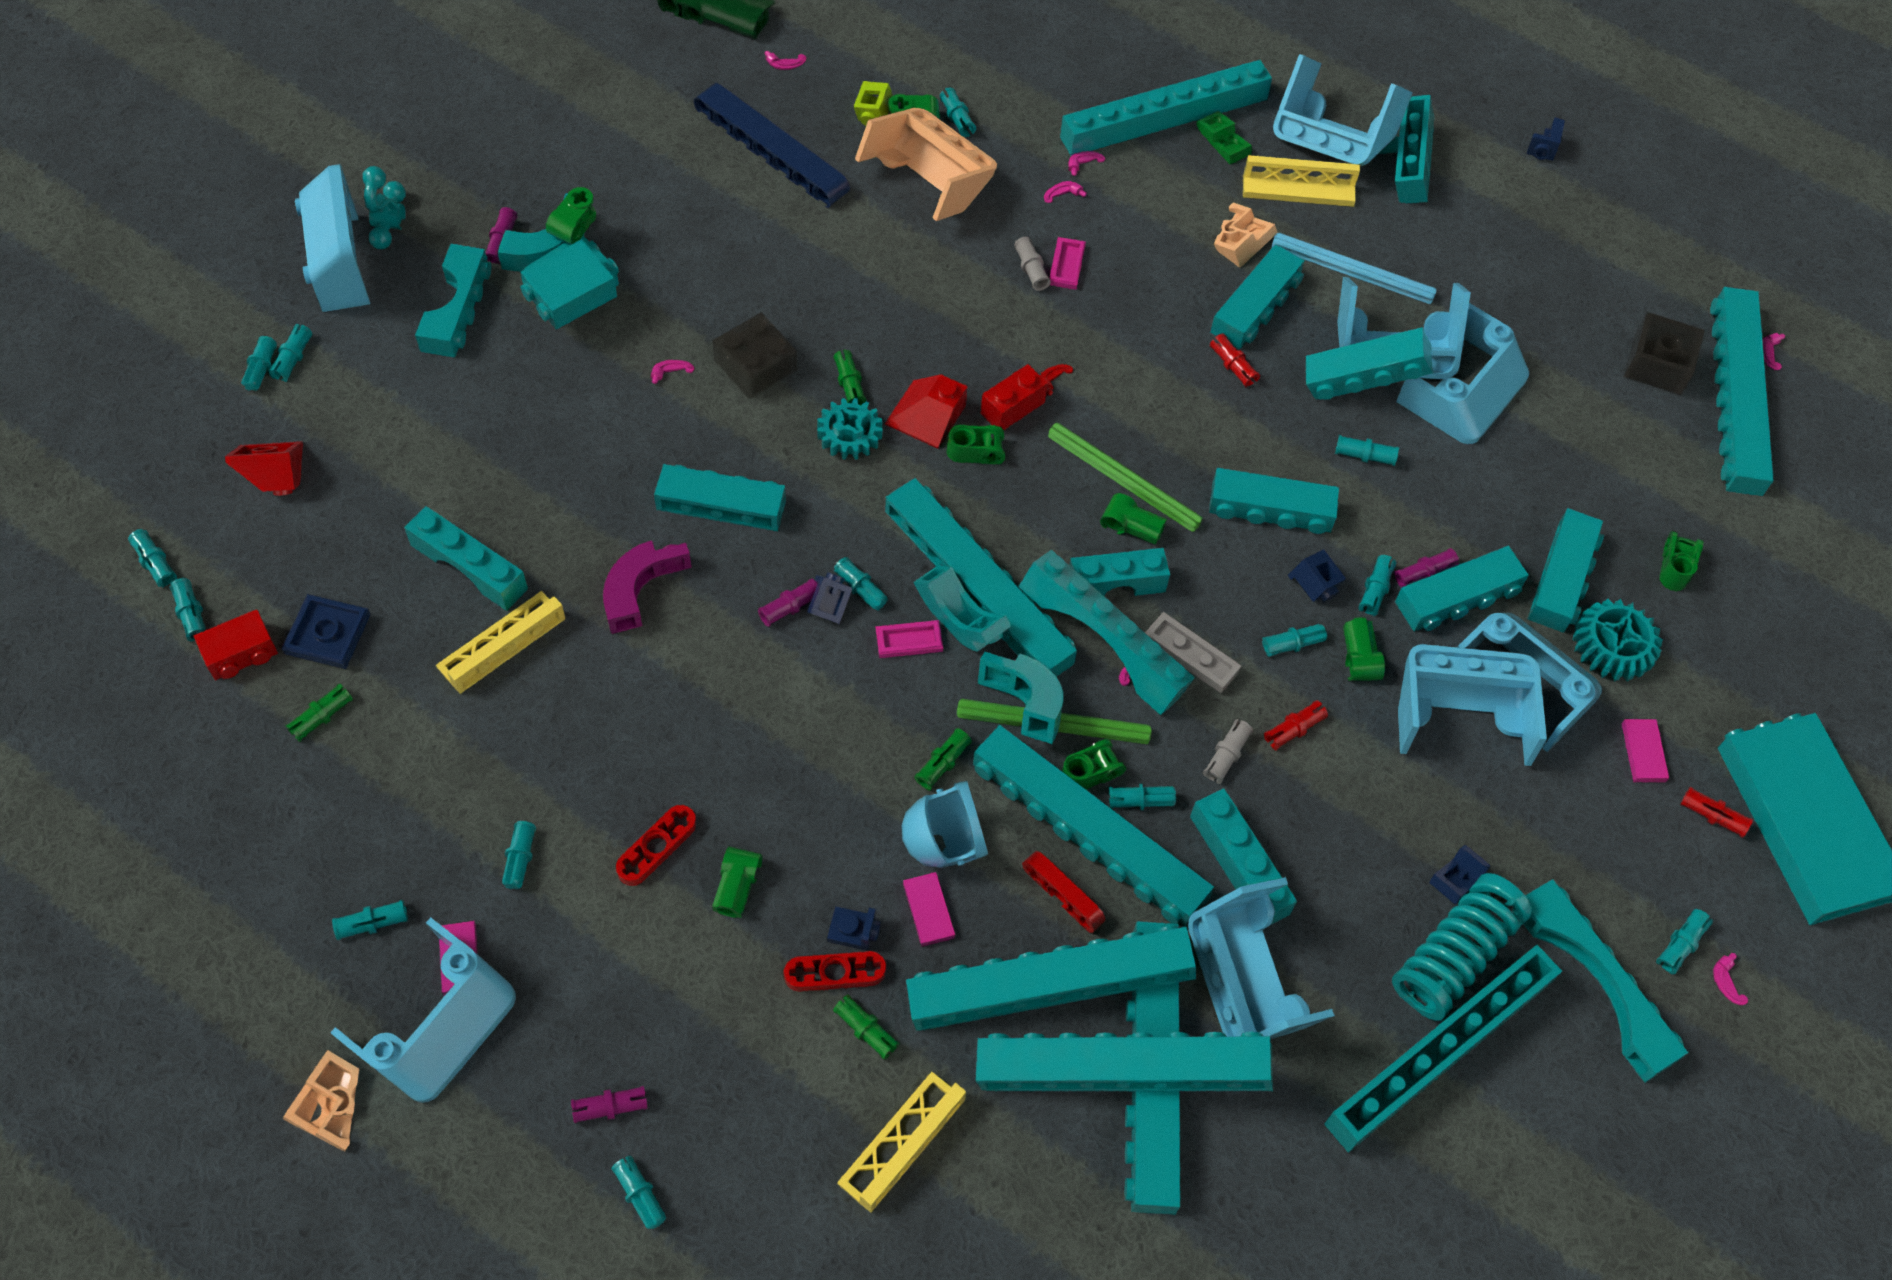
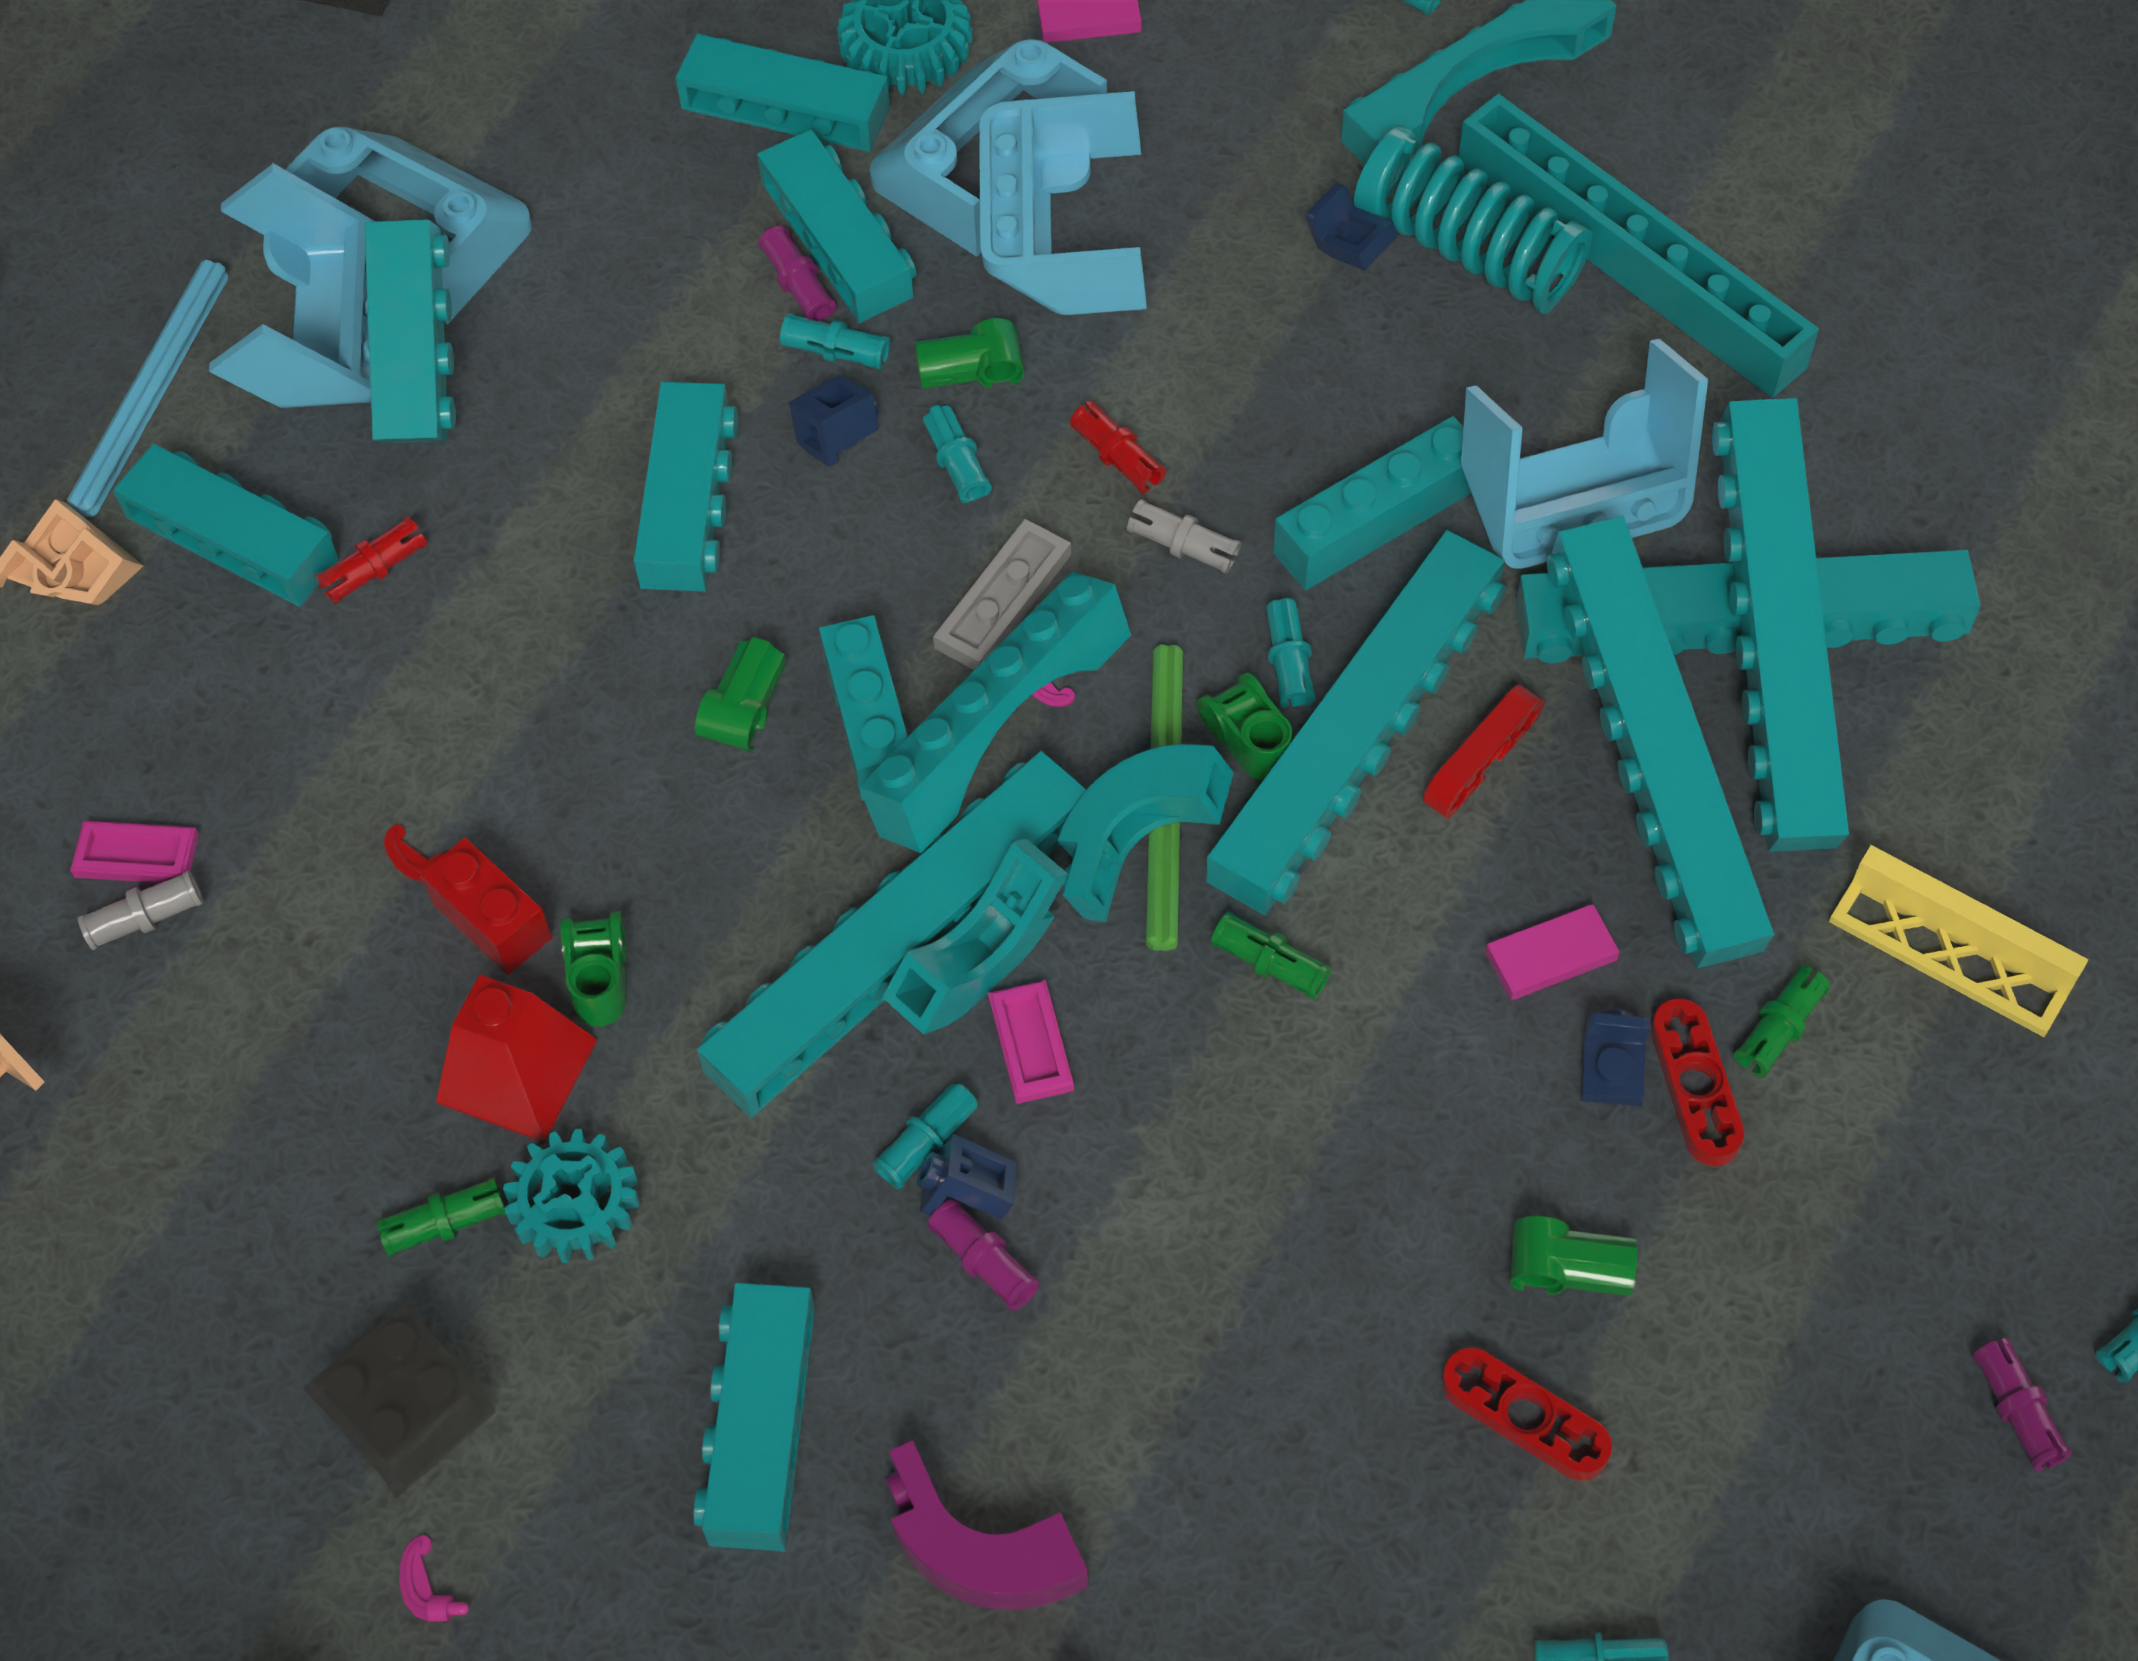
camera: 90 degrees left, 0 degrees up
(951, 816) = (1433, 923): medium azure piece -> none
(1125, 477) = (640, 724): bright green axle -> none
(1367, 450) = (562, 357): teal pin -> none

